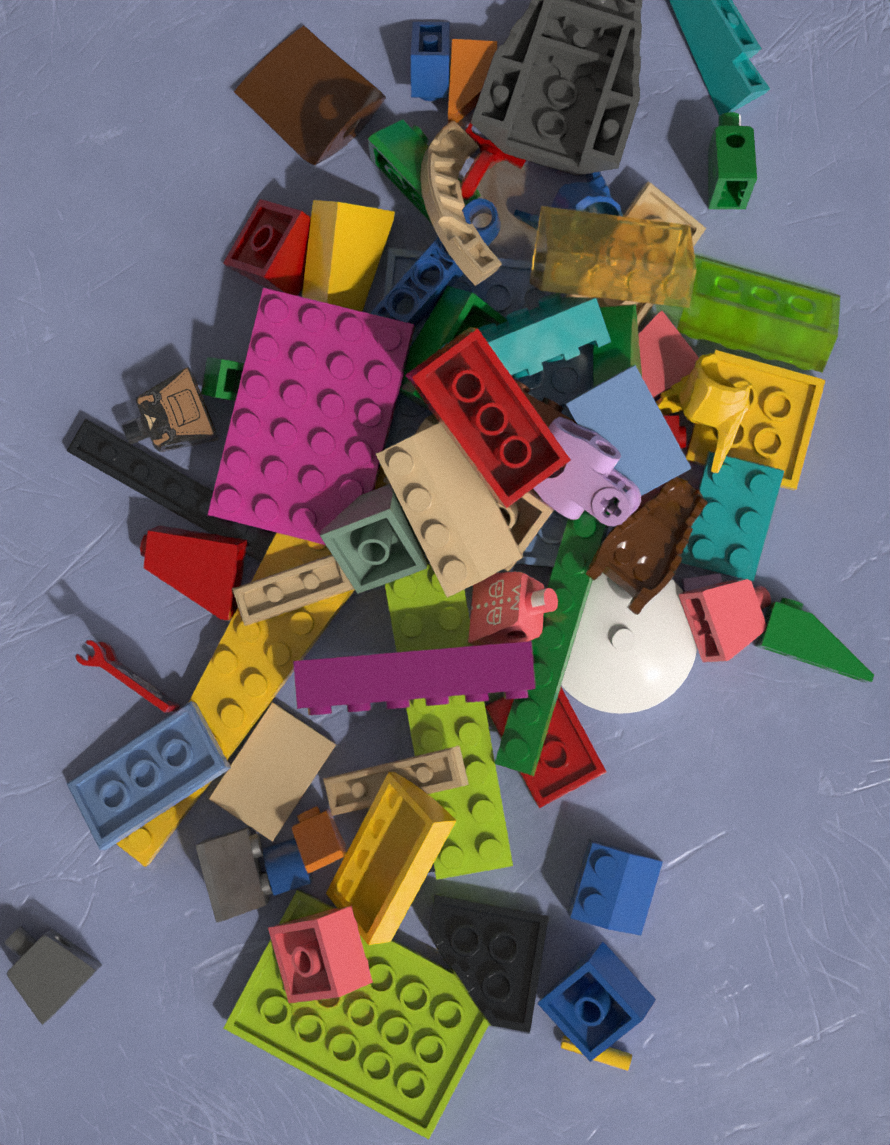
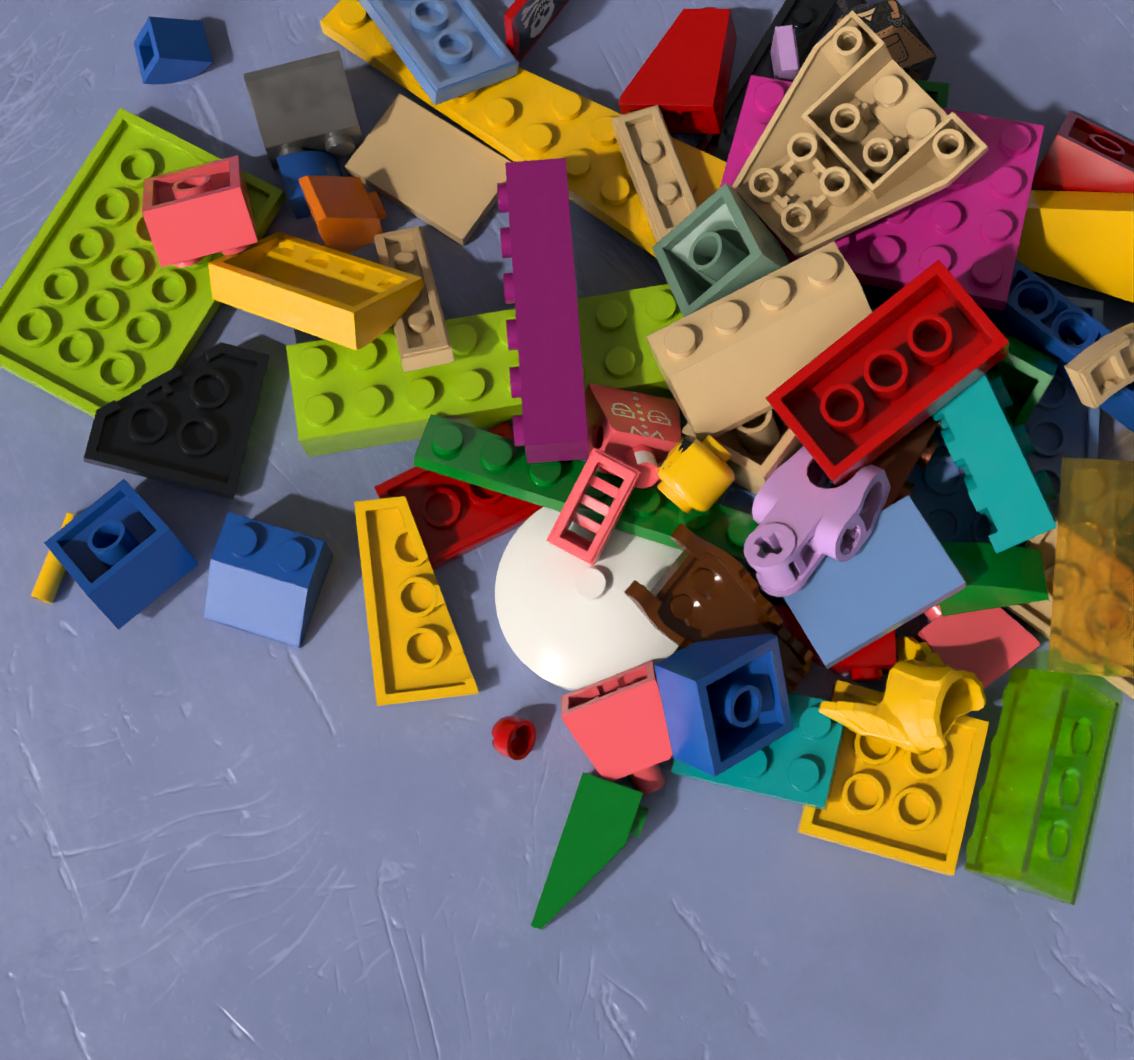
camera: 95 degrees right, 10 degrees down
(169, 989) = (171, 50): none -> blue brick
(188, 487) = (785, 54): none -> lavender tile
(286, 436) = (851, 144): none -> tan wedge
(548, 561) = (695, 473): none -> yellow head
(597, 650) = (576, 544): none -> coral slope
(645, 778) = (407, 618): none -> yellow wing
(716, 542) = (724, 700): none -> blue slope
(730, 697) = (513, 737): none -> red hinge

